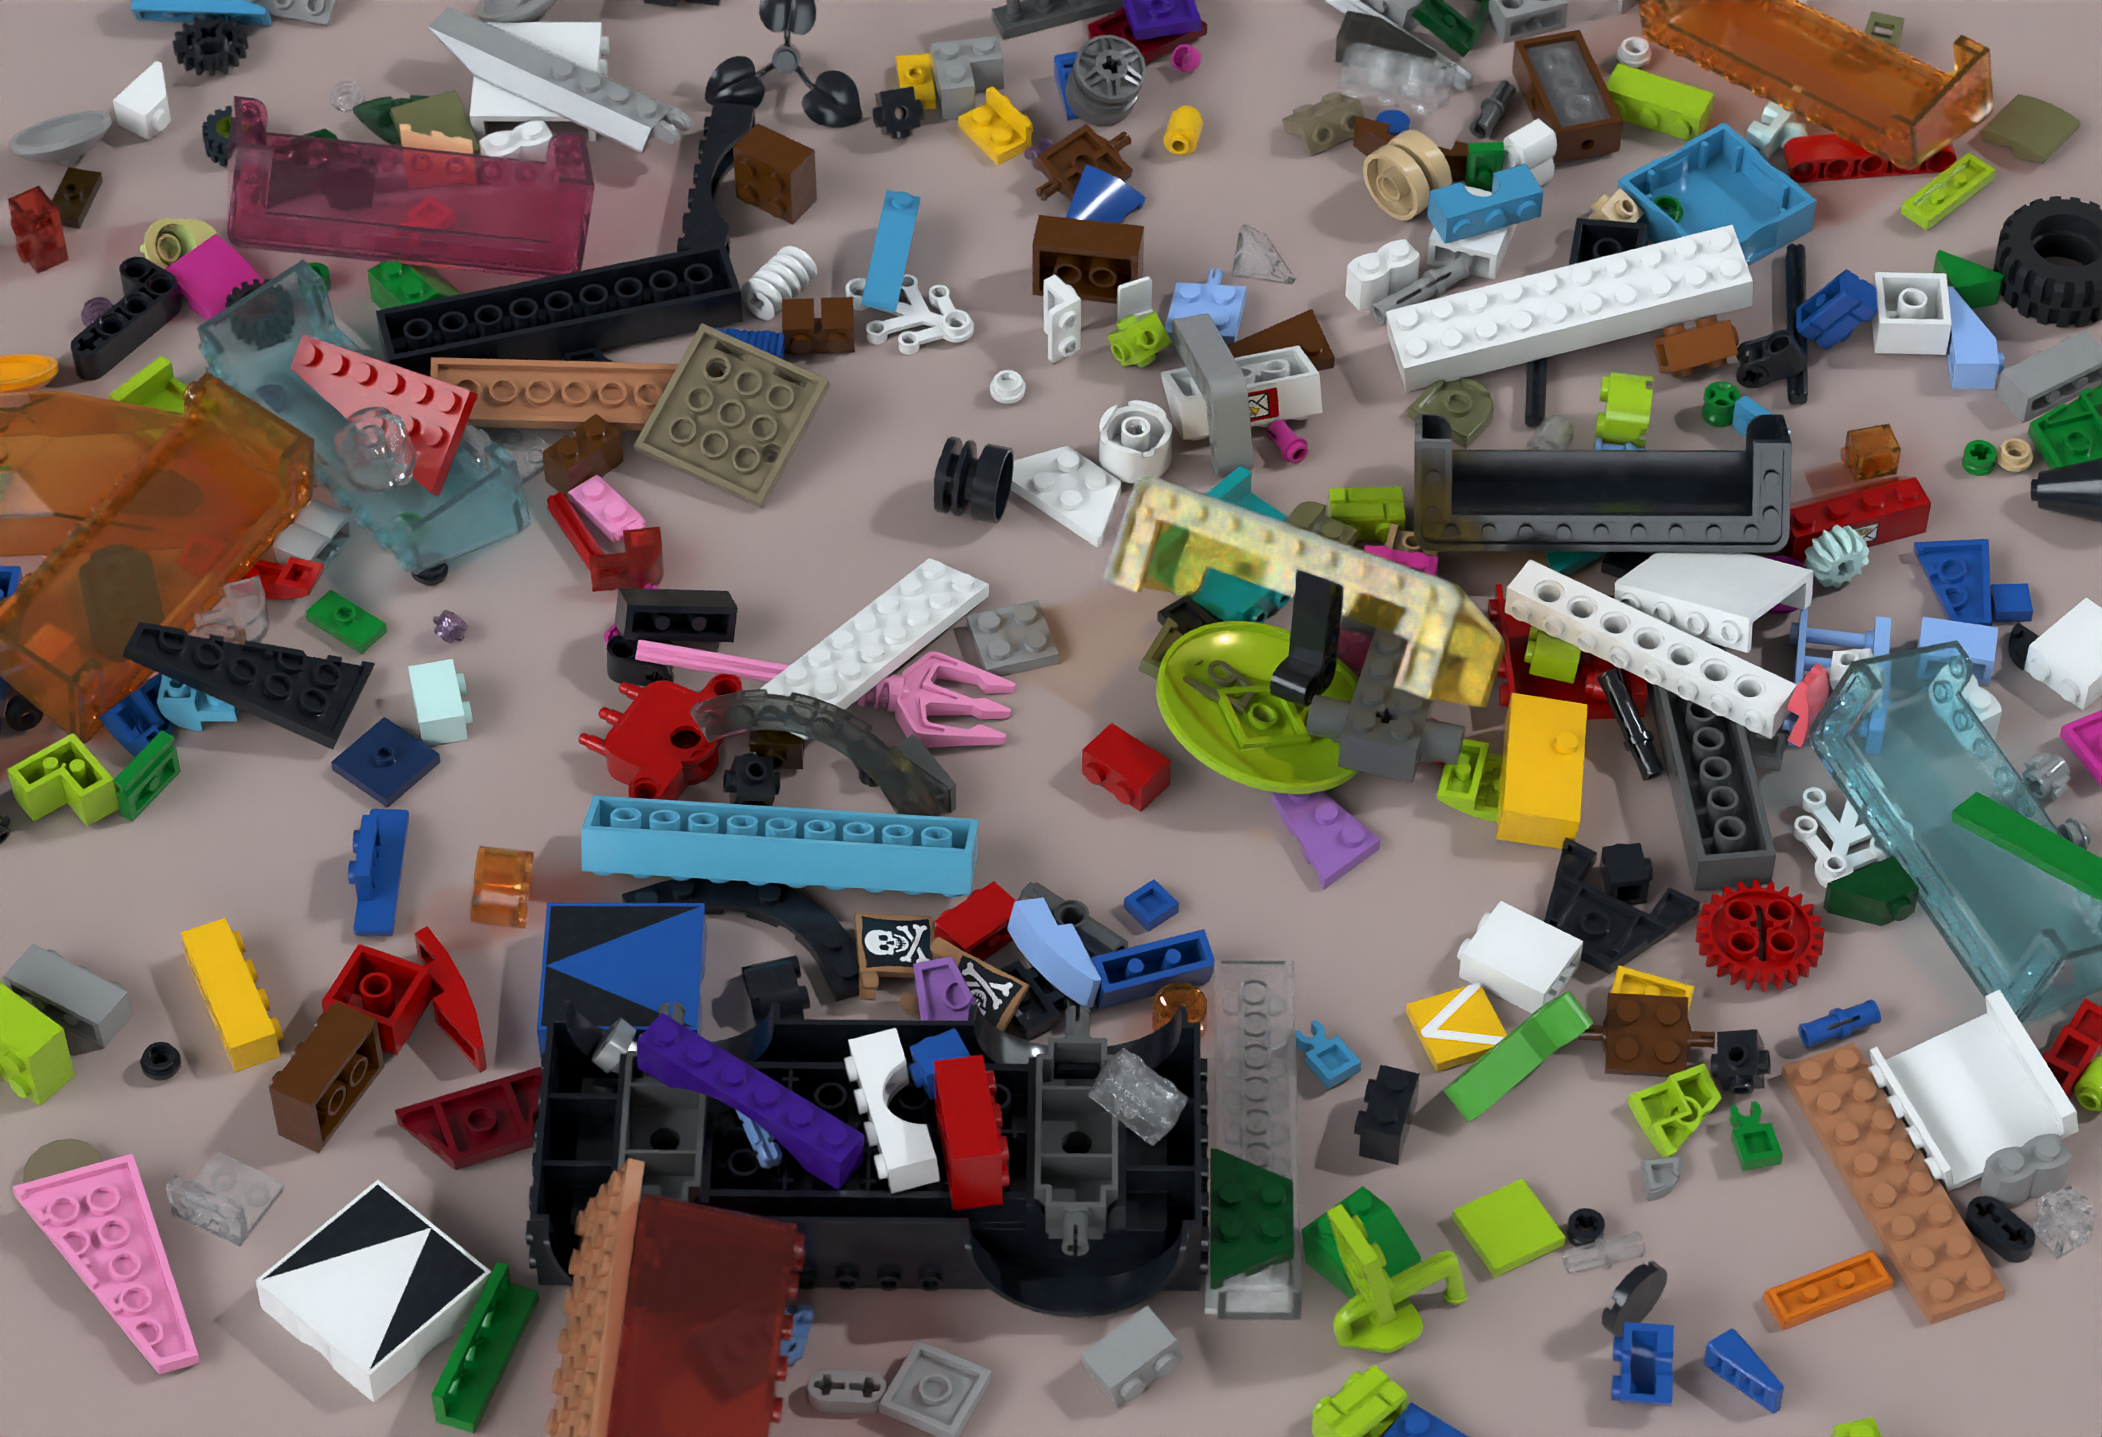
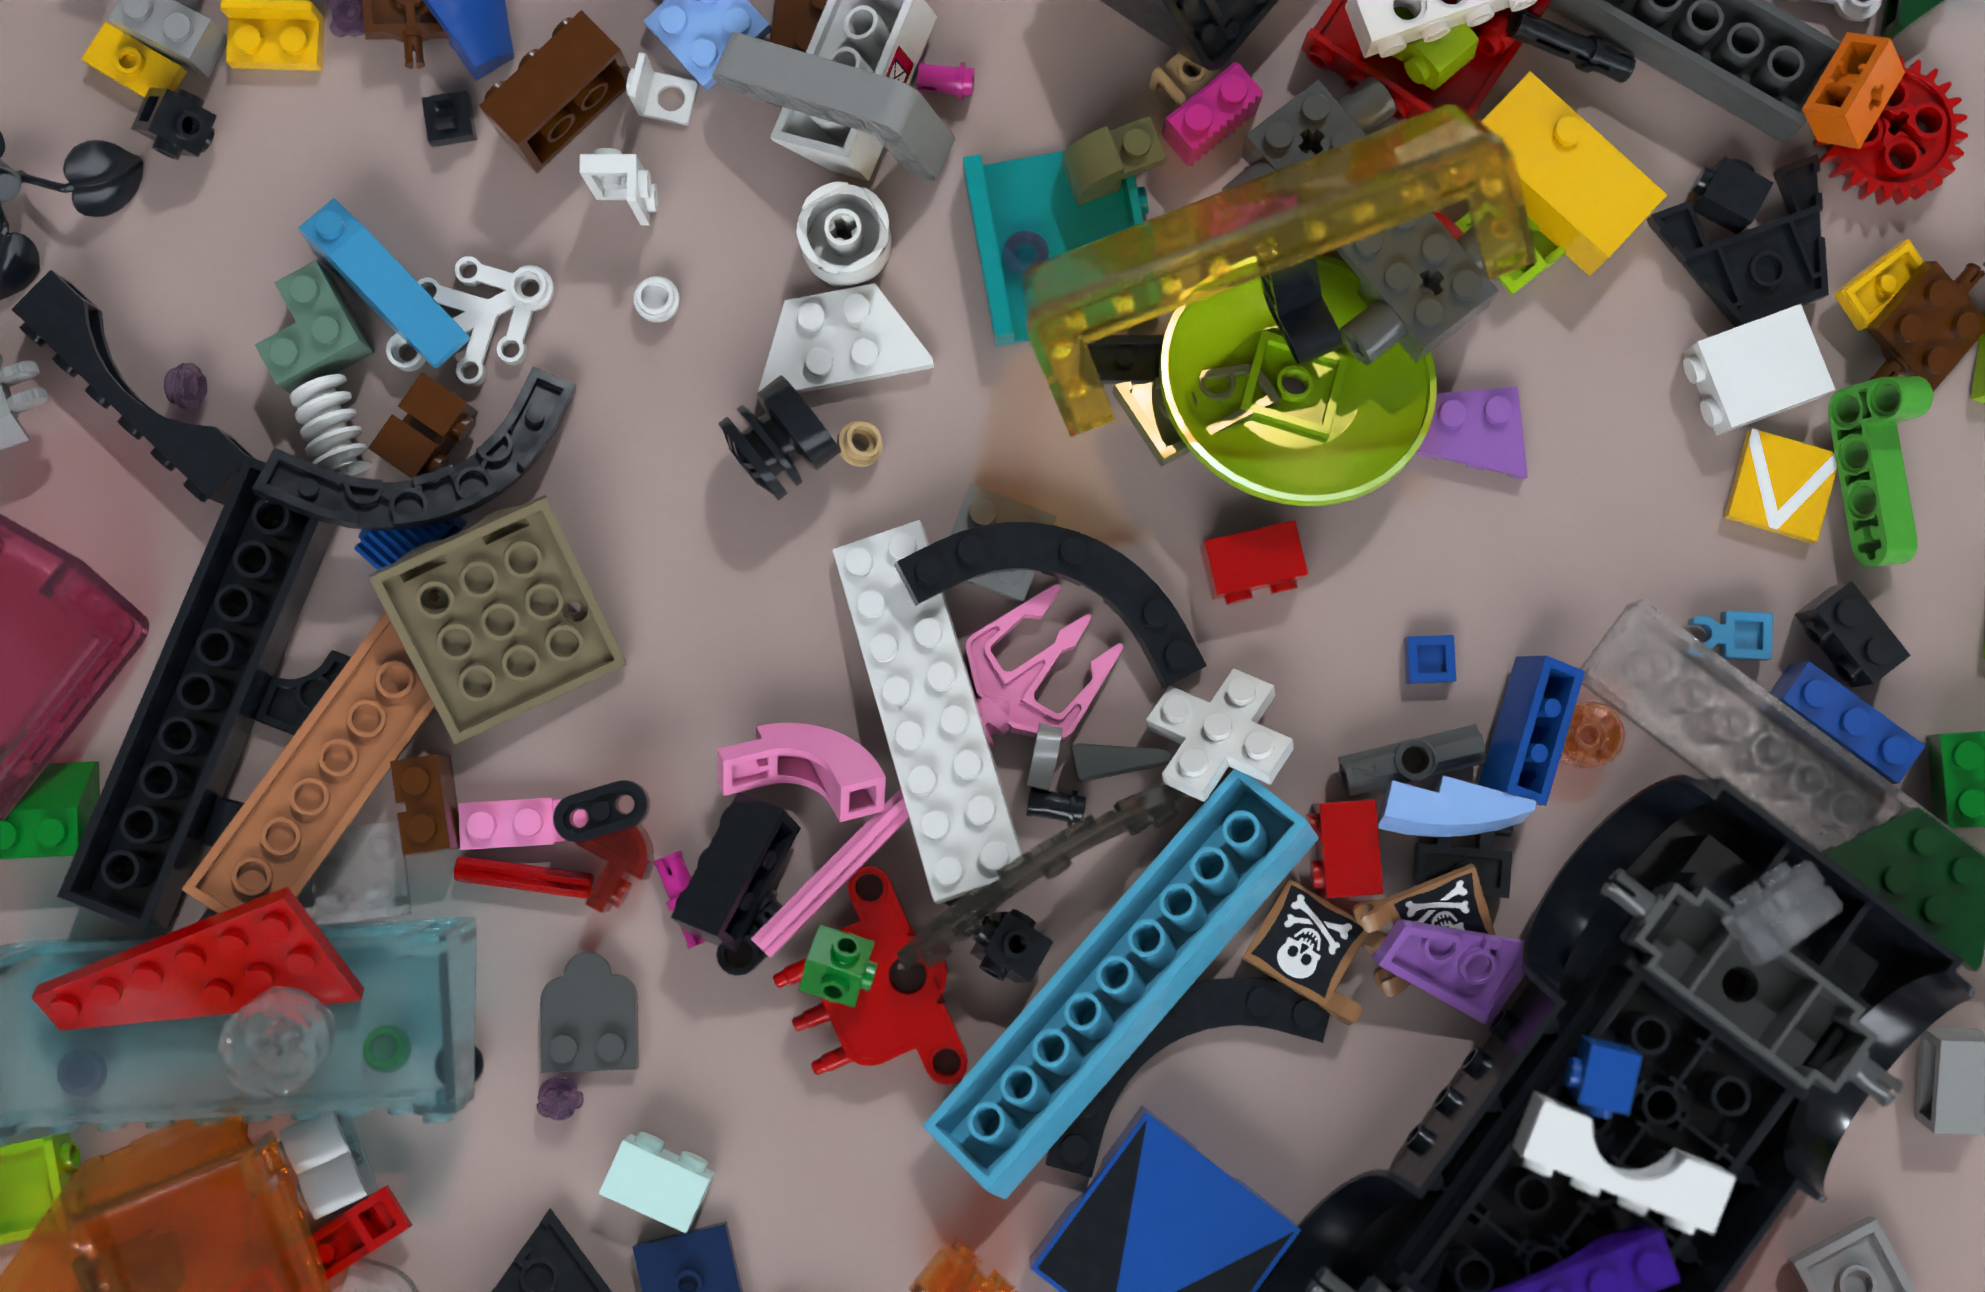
camera: 55 degrees left, 35 degrees up
(346, 621) = (465, 1196): green plate -> none
(514, 616) = (589, 1019): none -> dark grey plate
(660, 682) = (838, 966): none -> green brick
(661, 524) = (602, 811): none -> black plate
(738, 202) = (185, 386): none -> clear purple plate
(749, 311) = (429, 496): none -> black plate
(774, 604) = (807, 757): none -> bright pink arch
(775, 173) = (173, 322): reddish brown brick -> none
(776, 983) = (1272, 1099): black cylinder -> none
(834, 245) = (324, 332): none -> sand green brick
(895, 719) = (1044, 756): none -> light grey beam
(970, 1132) = (1727, 1118): red brick -> none
(988, 800) = (1219, 735): none -> white plate
(1014, 525) = (868, 435): none -> tan plate
(1021, 232) = (449, 118): none -> black tile
(1032, 661) = (1068, 557): none -> black plate
(1138, 339) = (702, 123): lime brick -> none
(1322, 1145) = (1848, 720): none -> blue brick
(1368, 510) = (1106, 79): lime brick -> none
(1726, 861) = (1853, 90): none -> orange brick

